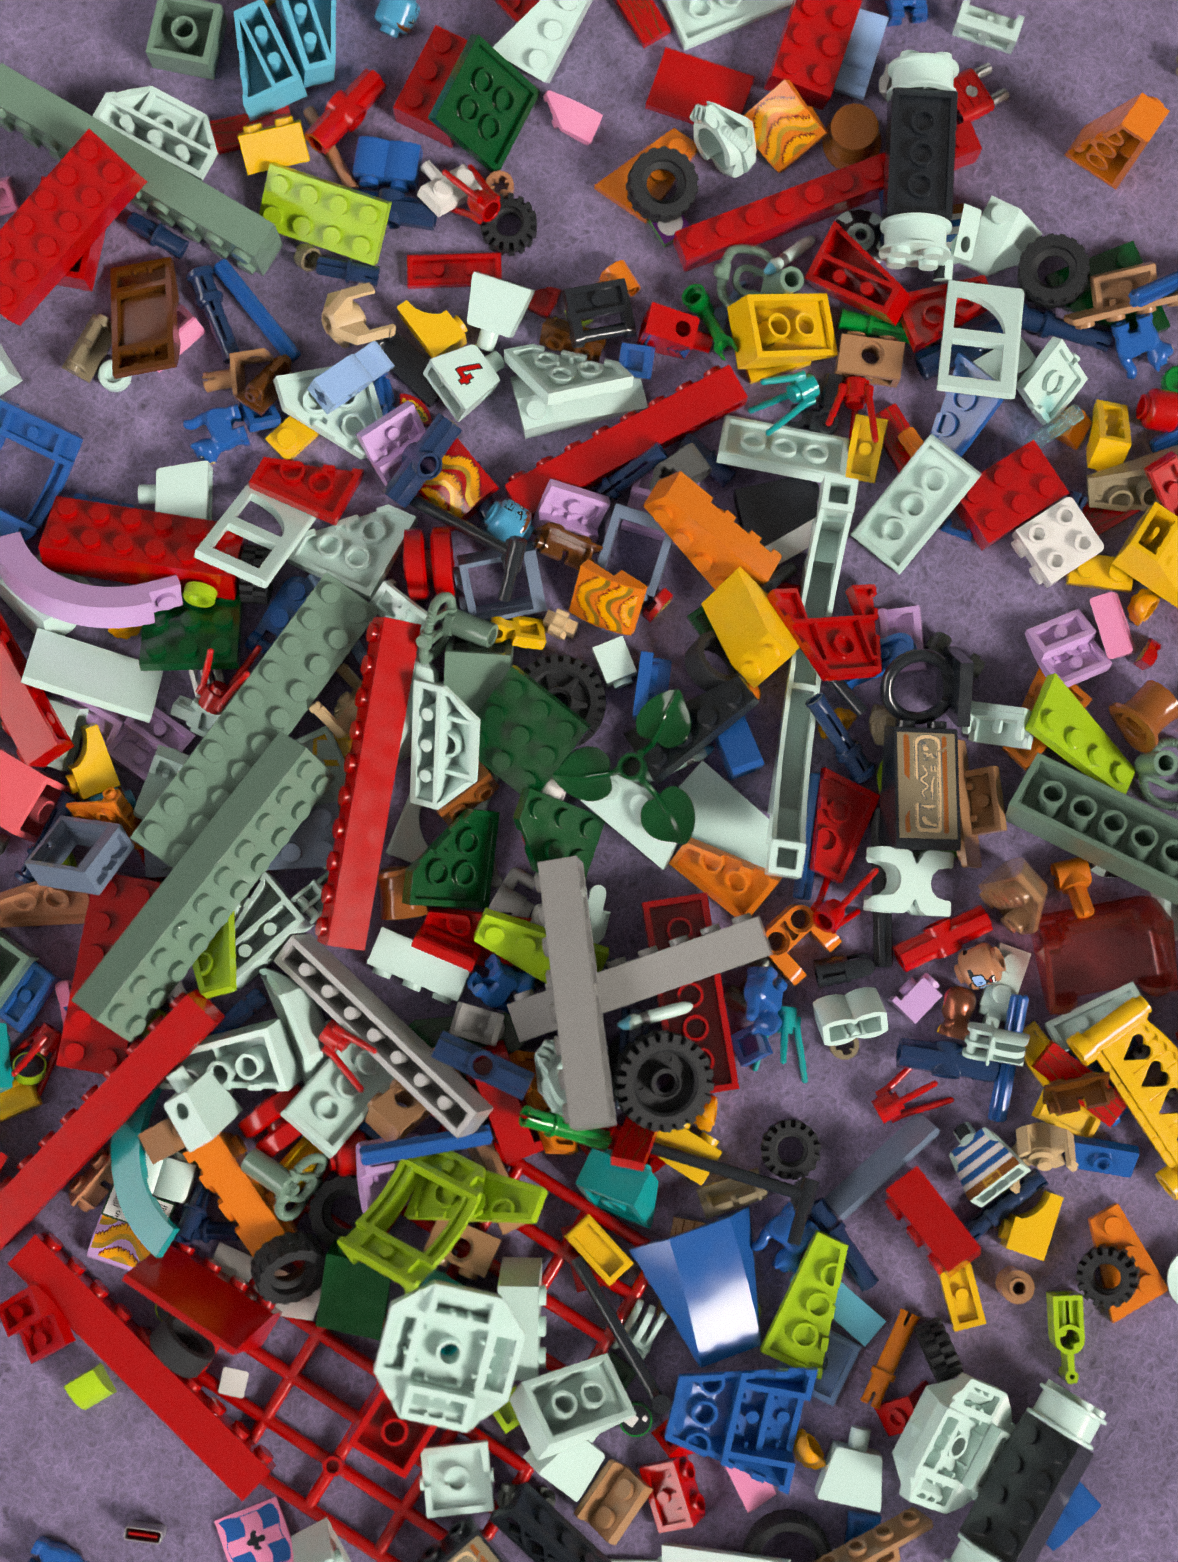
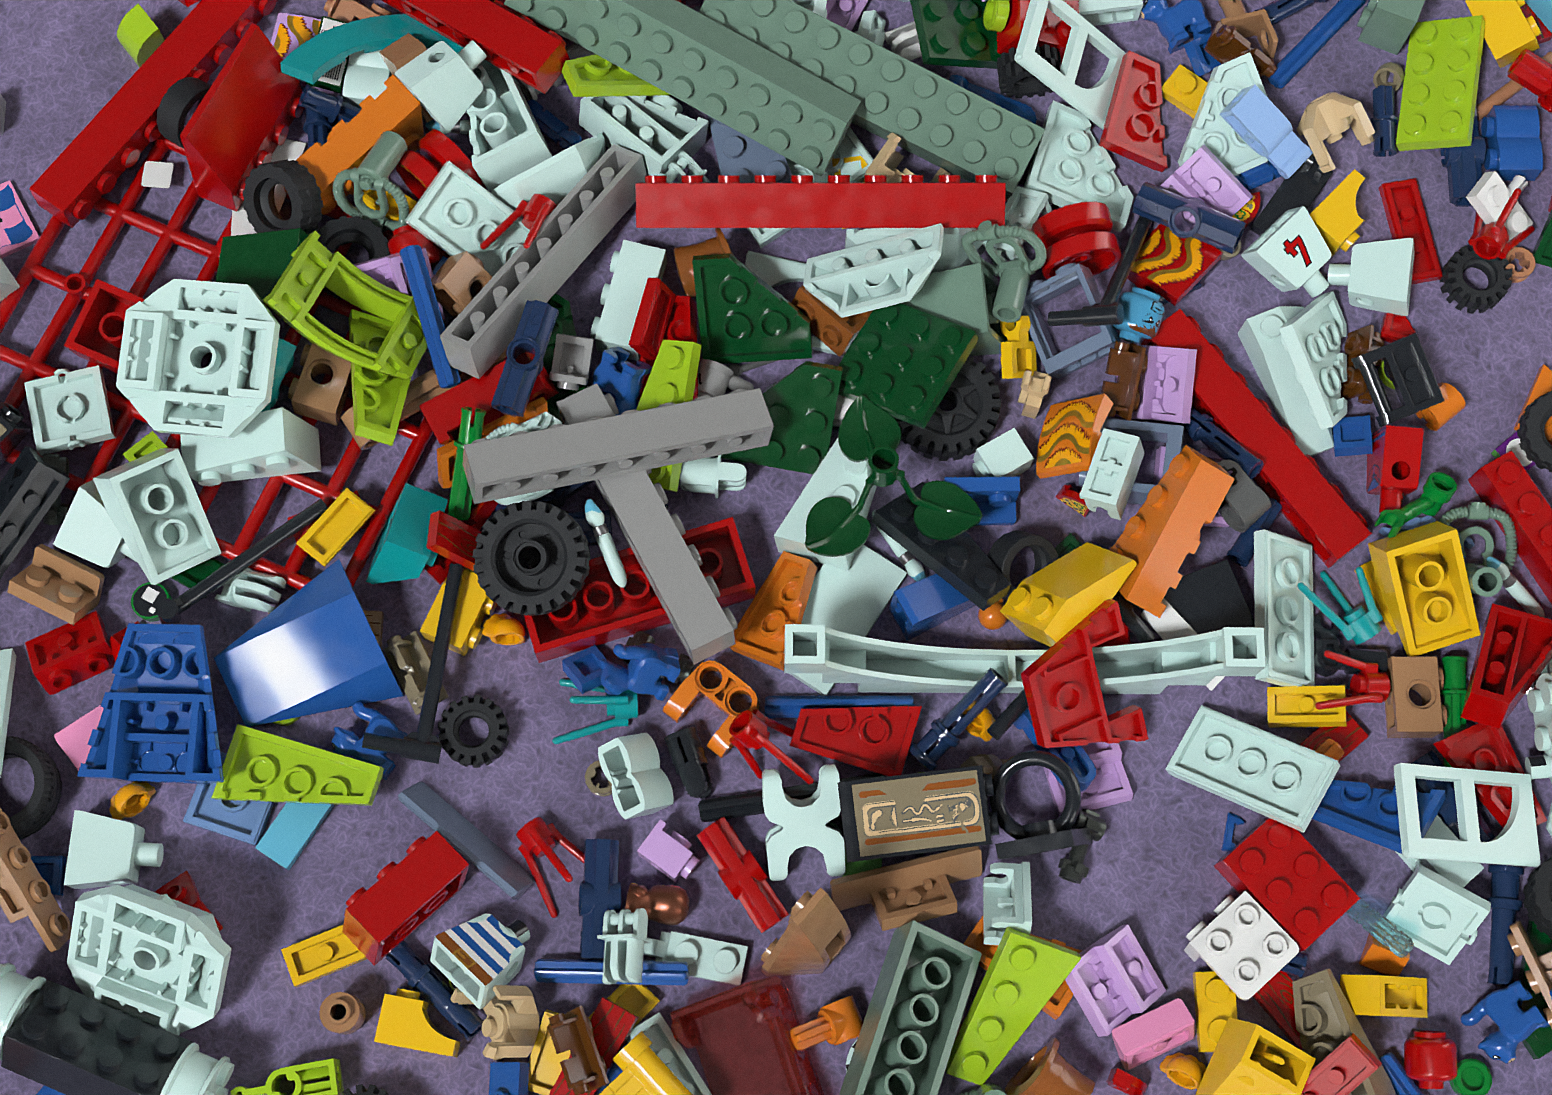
camera: 80 degrees right, 10 degrees down
(216, 695) = (895, 43): red plant -> none
(652, 572) = (1112, 472): none -> light aqua hinge
(854, 1259) = (361, 816): dark blue pin -> none
(889, 1359) = (228, 874): orange pin -> none
(938, 1349) = (258, 928): black tyre -> none
(980, 966) = (716, 922): nougat head -> none

